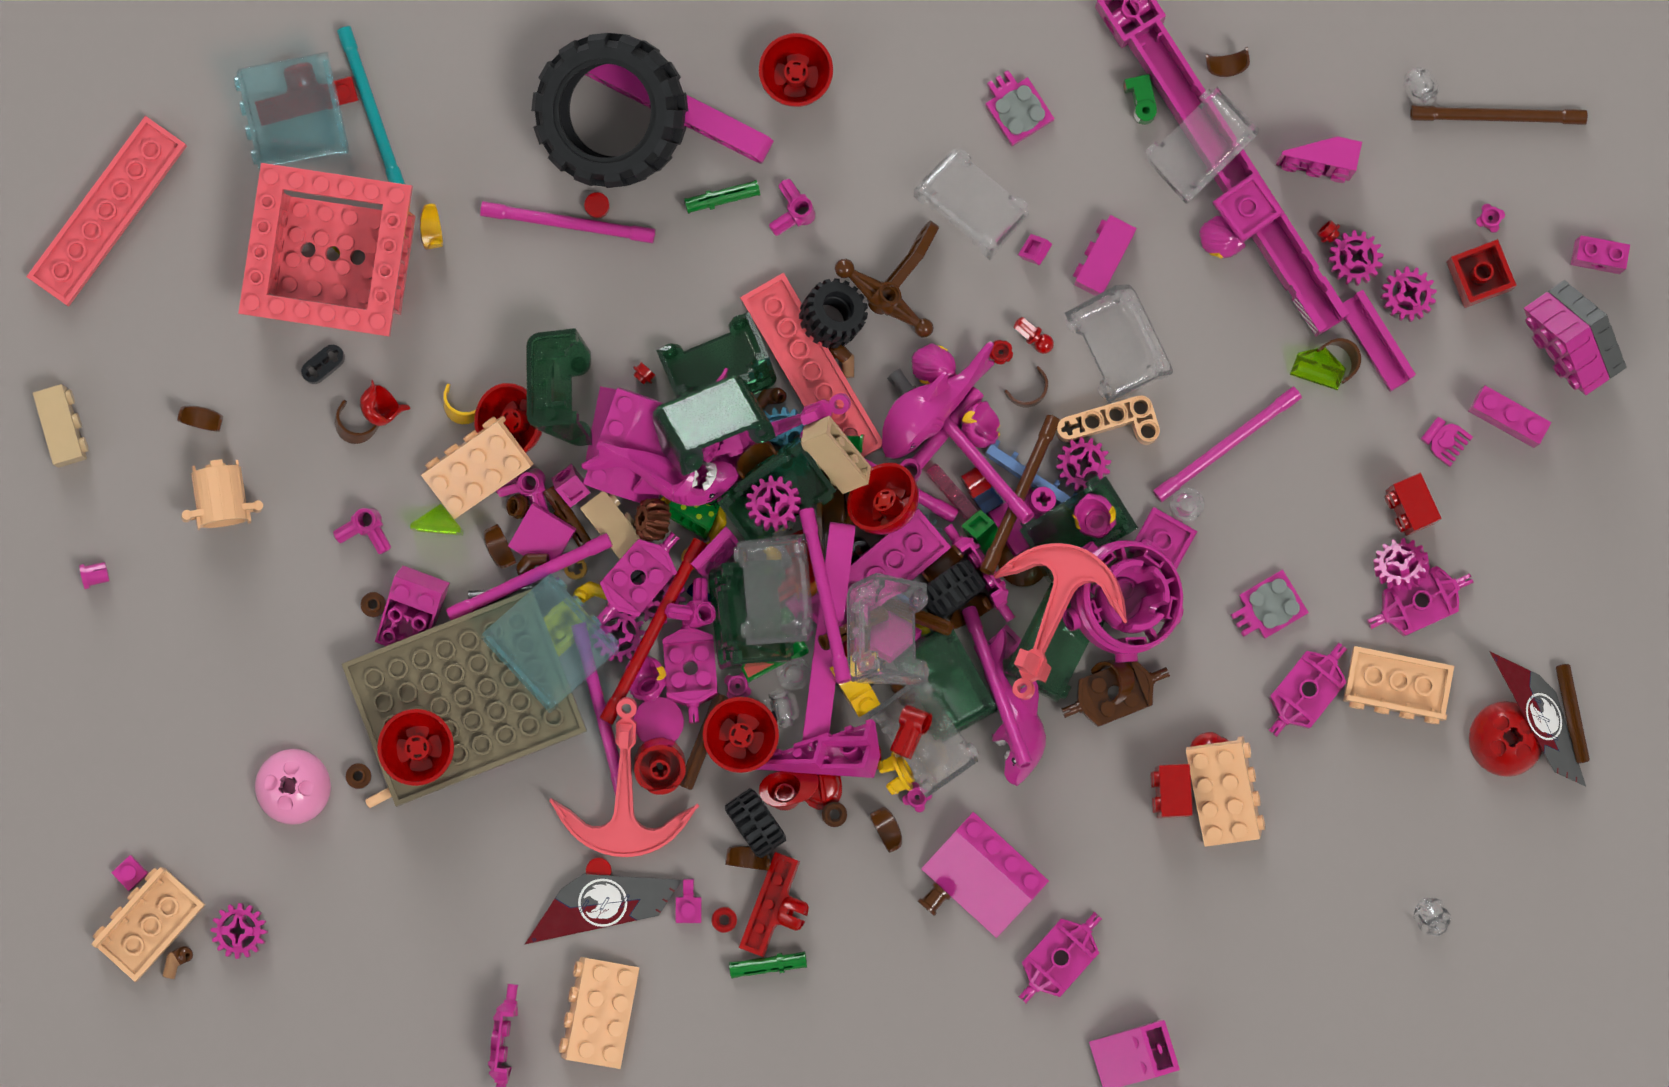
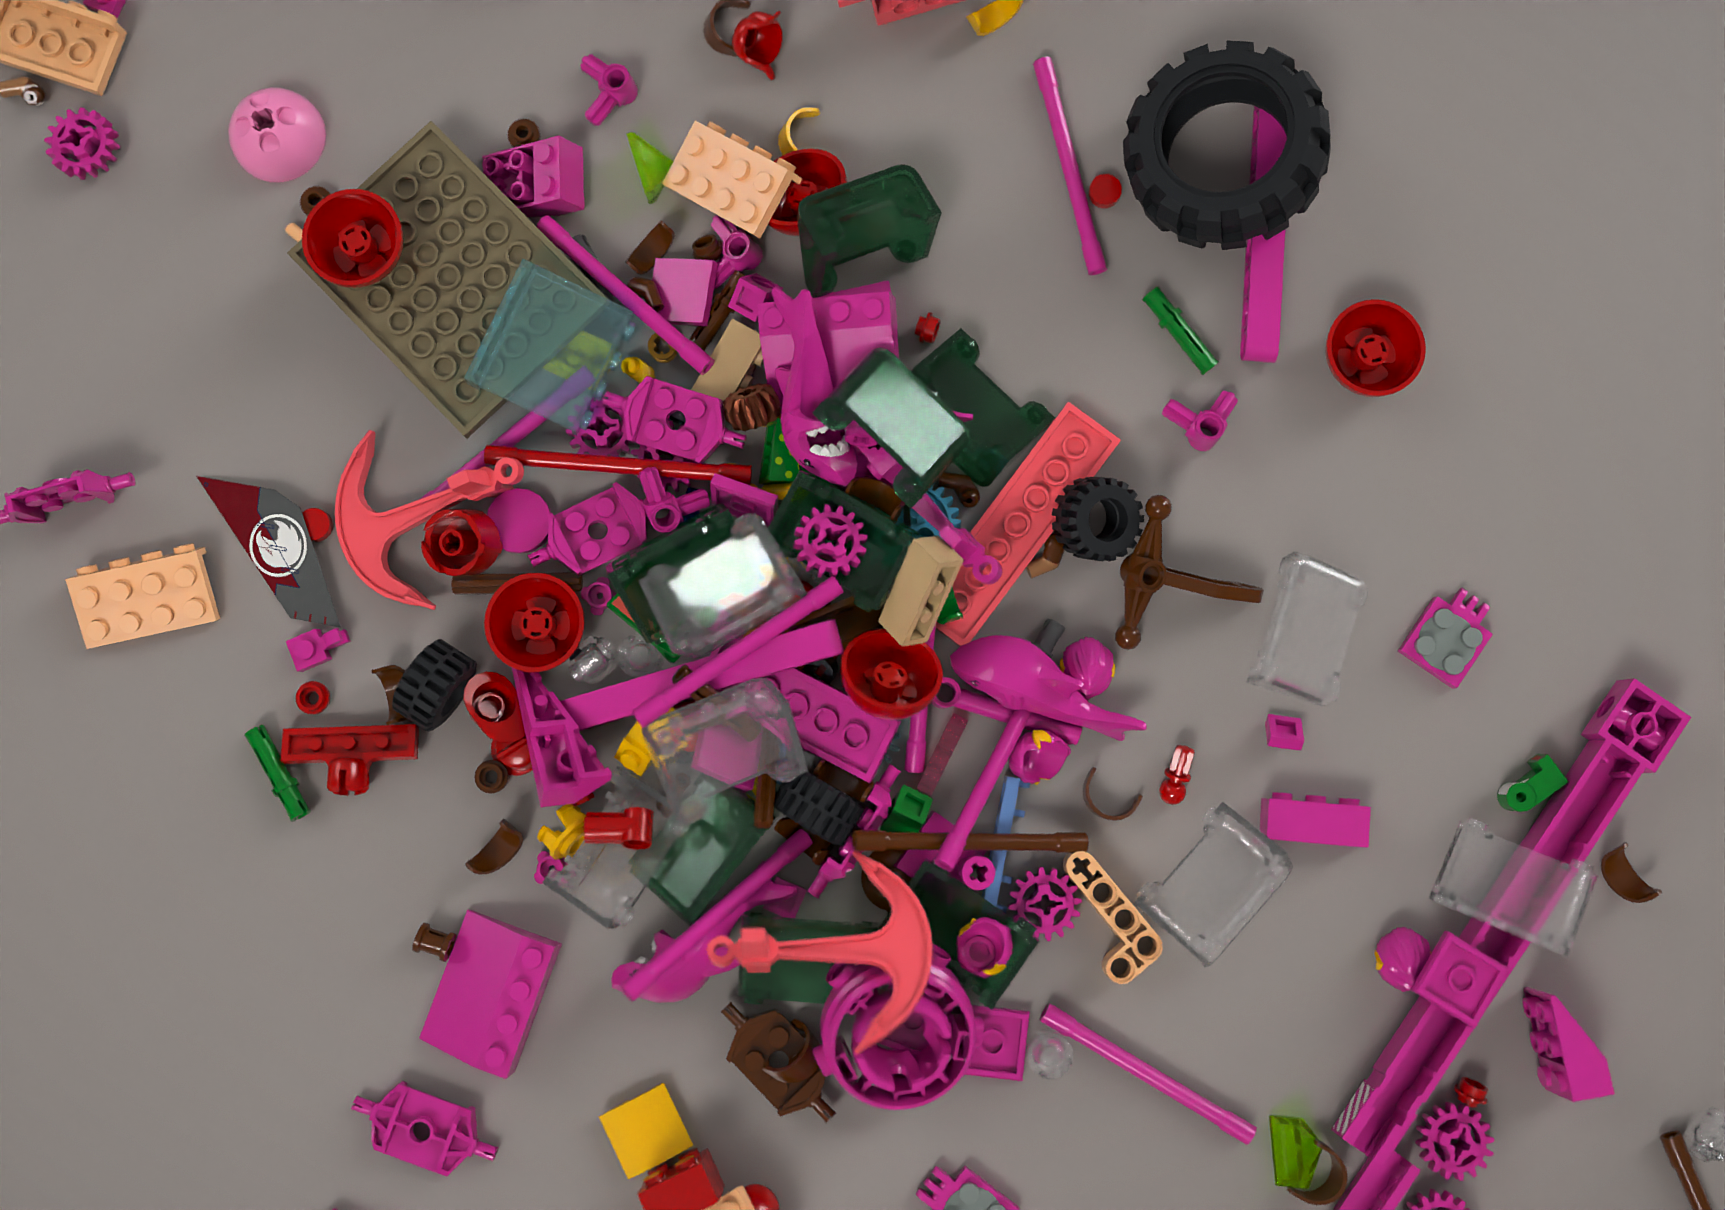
camera: 70 degrees right, 0 degrees up
(649, 680) = (560, 486): dark pink hair -> none
(981, 491) = (956, 790): leg -> none
(1007, 354) = (1139, 752): red plate -> none
(1124, 803) = (645, 1131): none -> yellow slope

